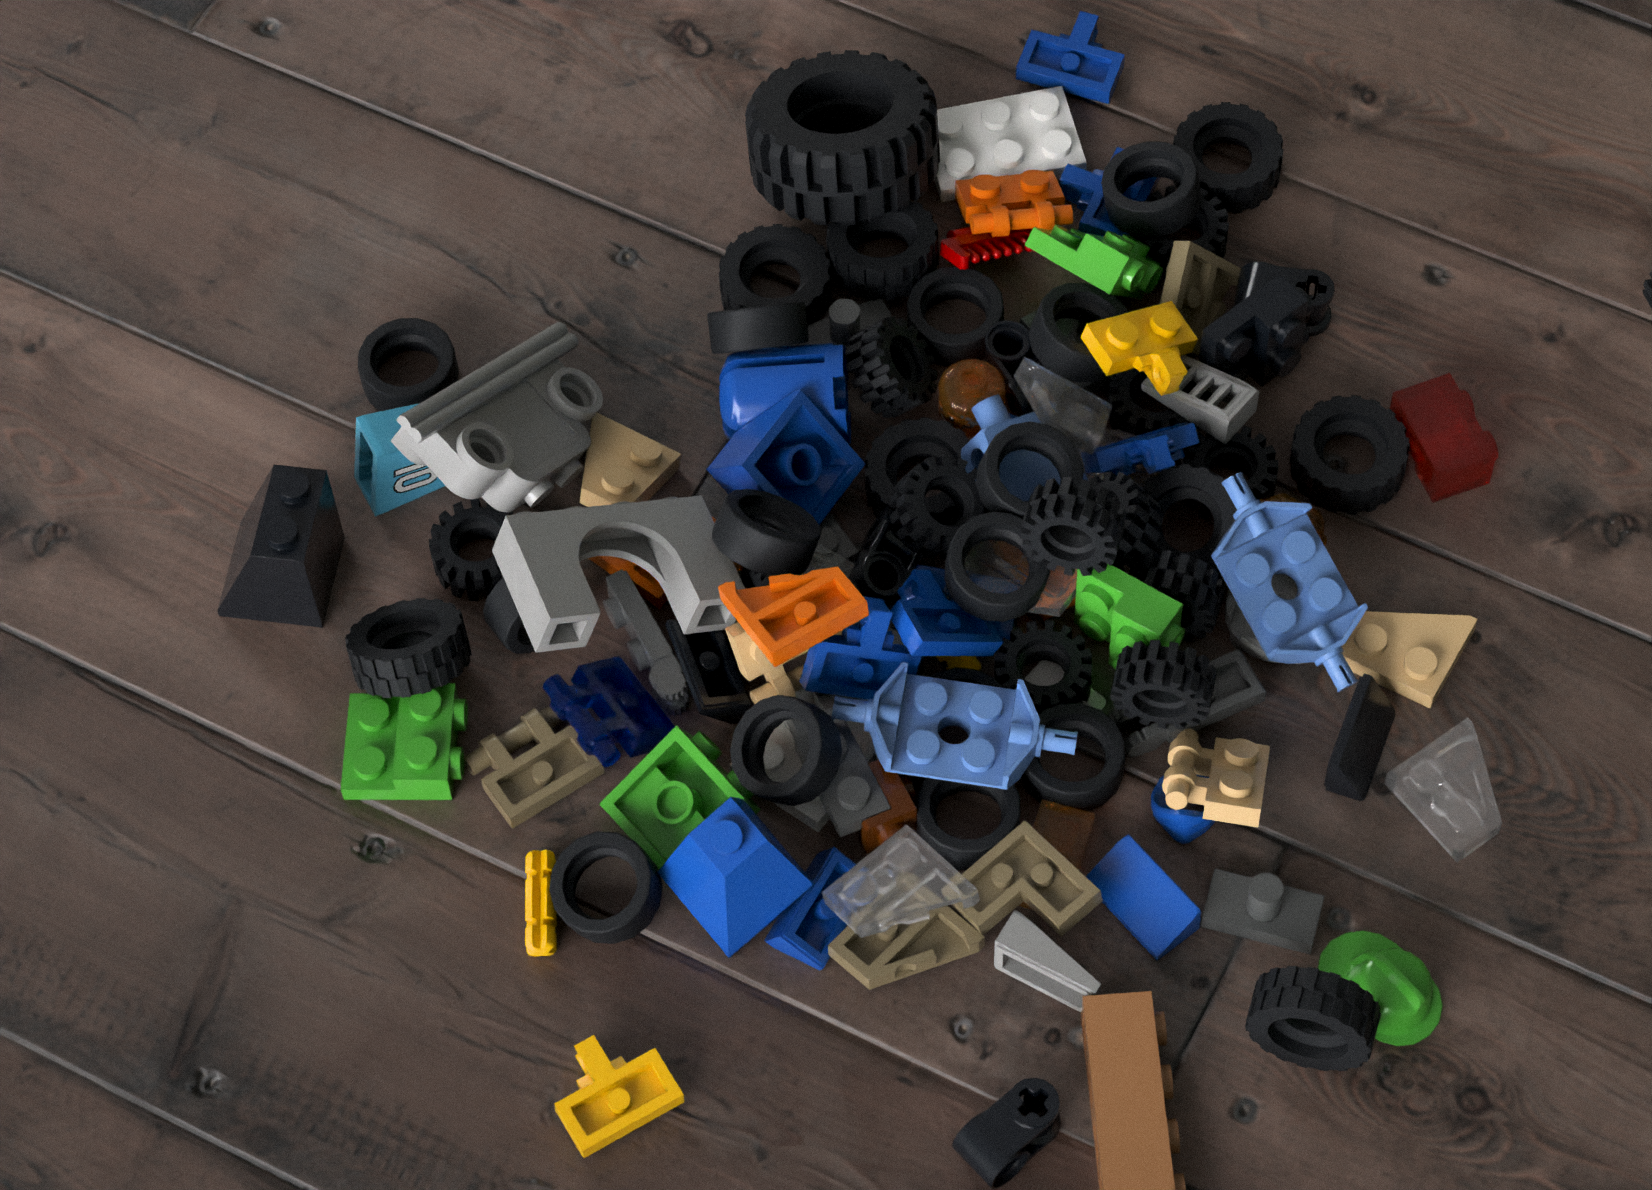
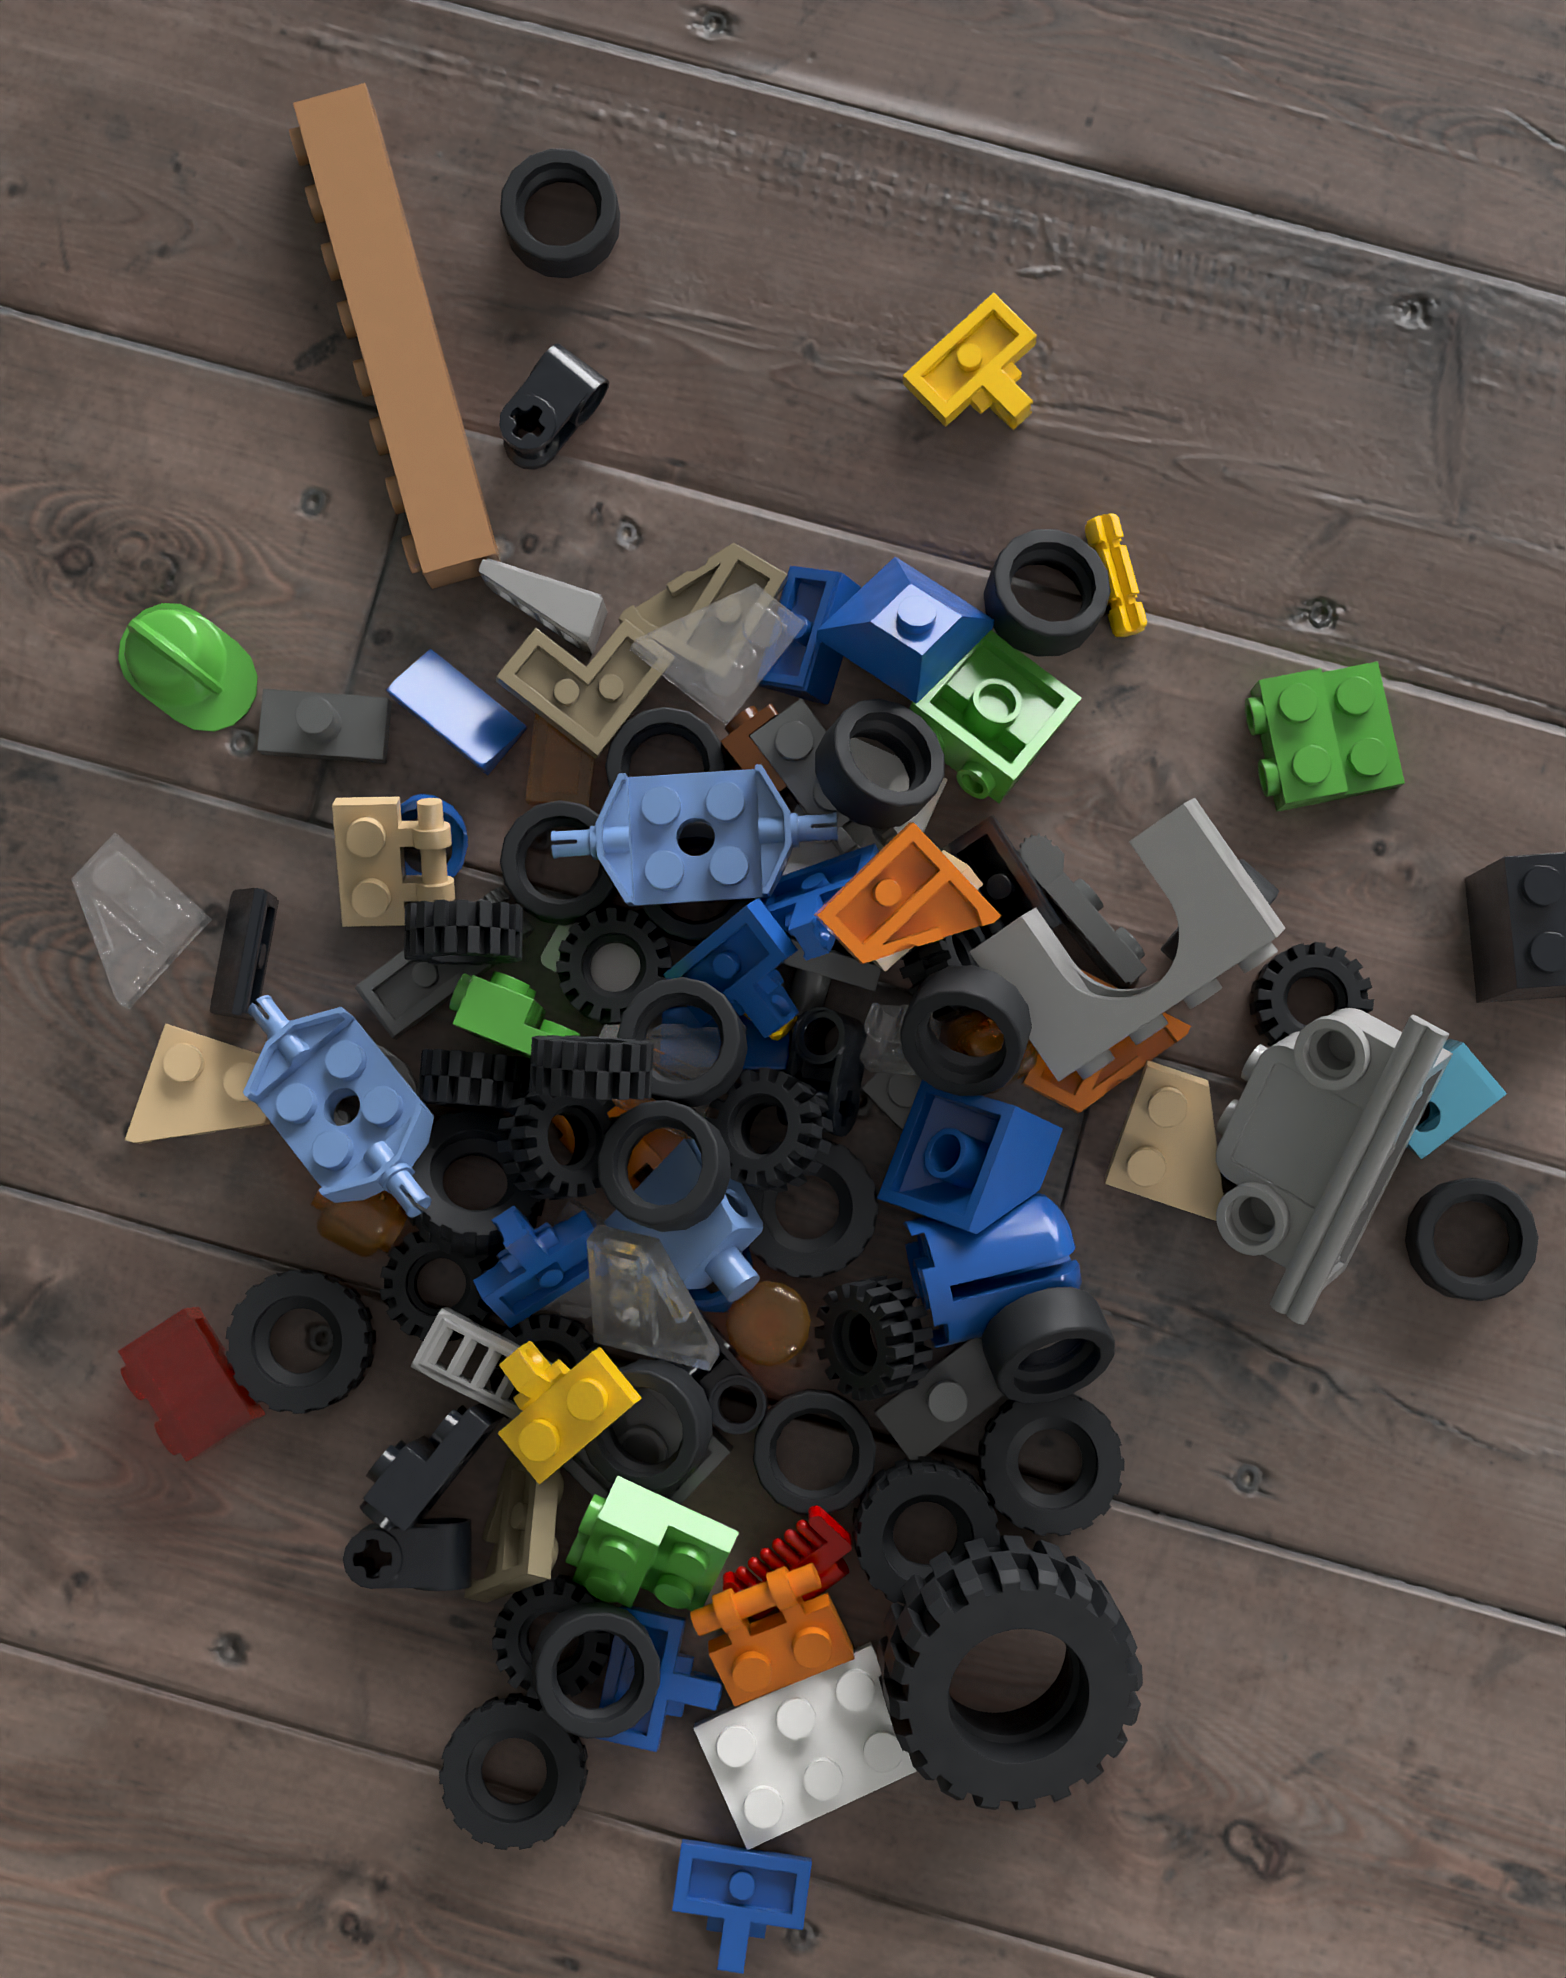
camera: 170 degrees right, 25 degrees up
(408, 648) = (1385, 866): black tyre -> none
(539, 775) = (1156, 724): dark tan plate -> none
(619, 700) = (1083, 820): clear blue plate -> none
(1313, 1018) = (243, 571): black tyre -> none

